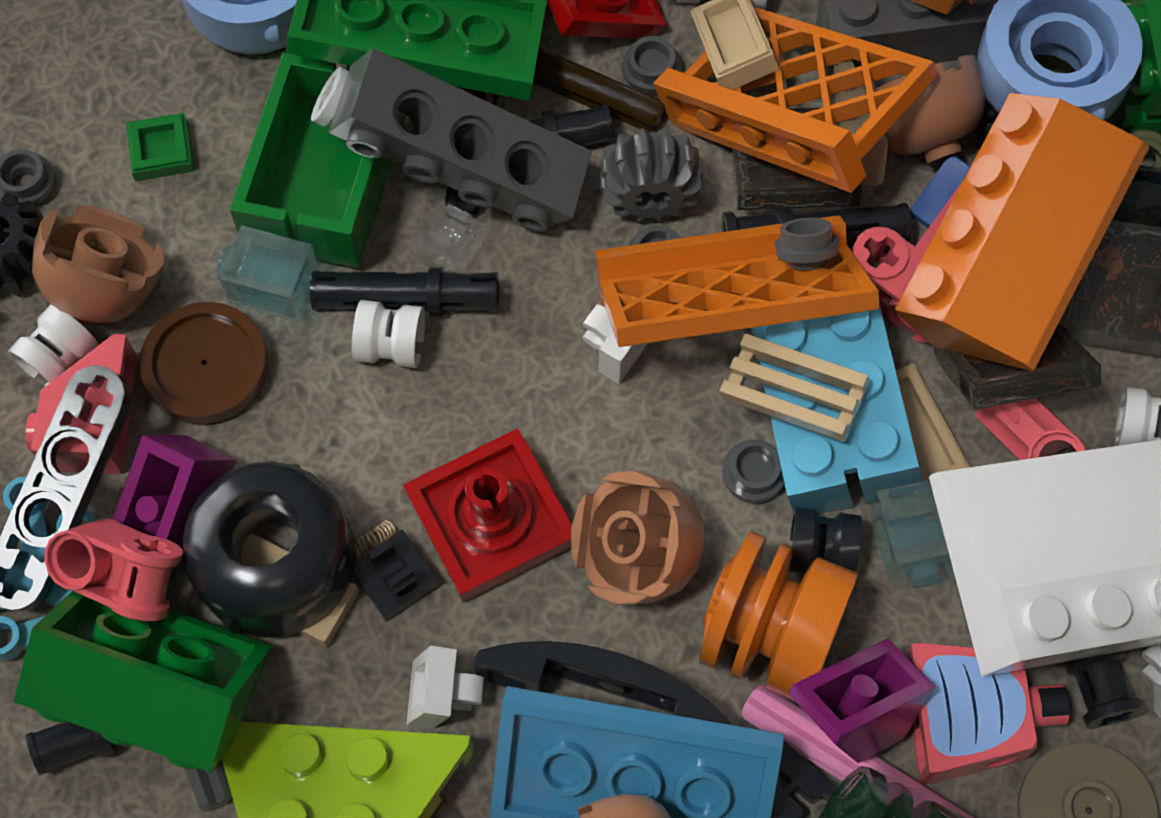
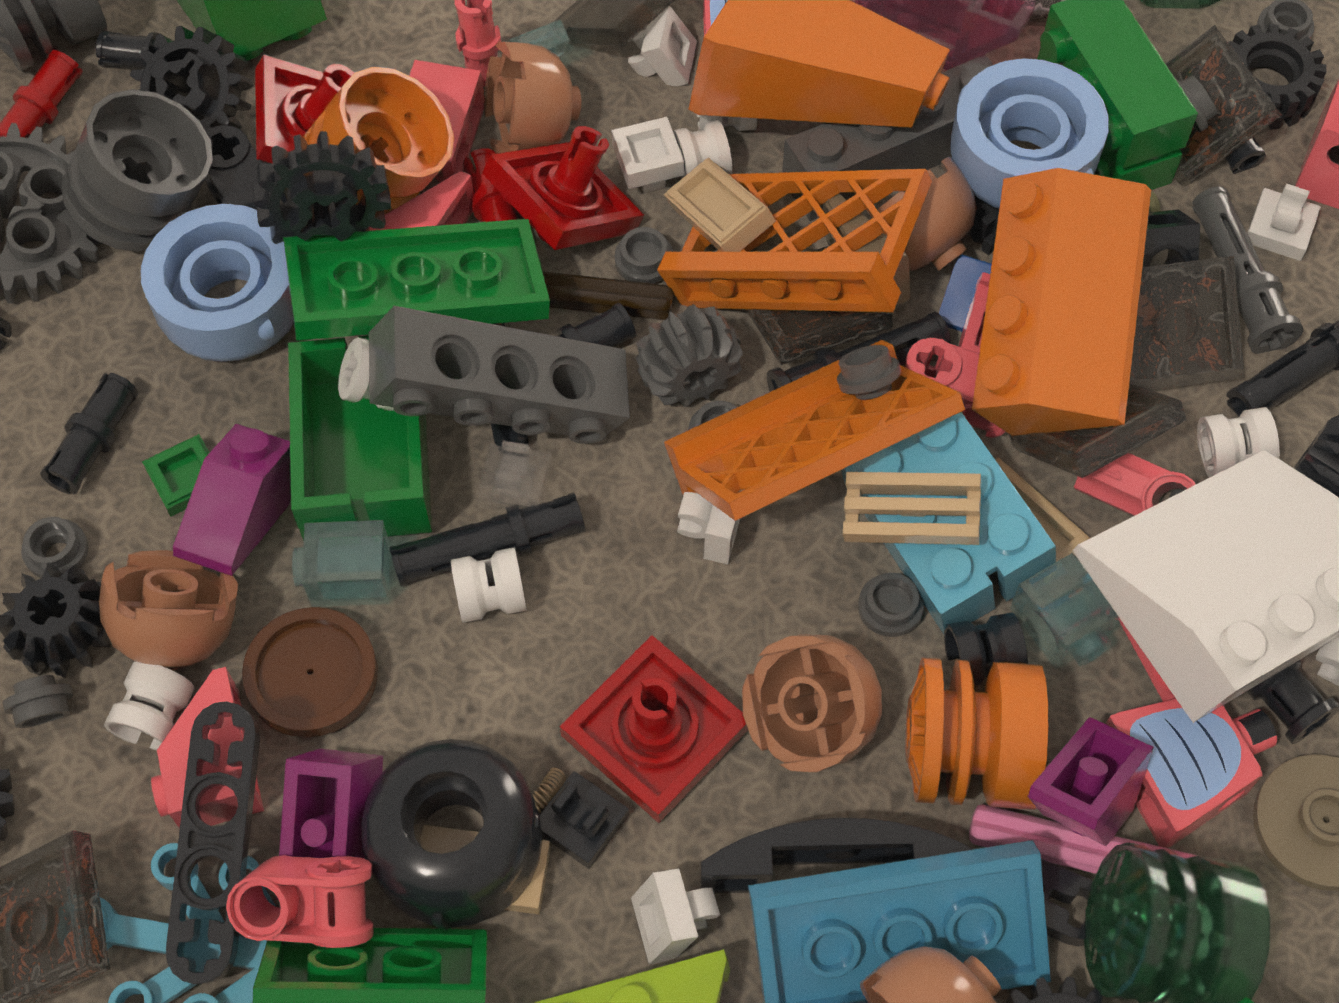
camera: 20 degrees left, 5 degrees down
(89, 82) = (89, 433): none -> black pin
(187, 184) = (235, 499): none -> magenta slope

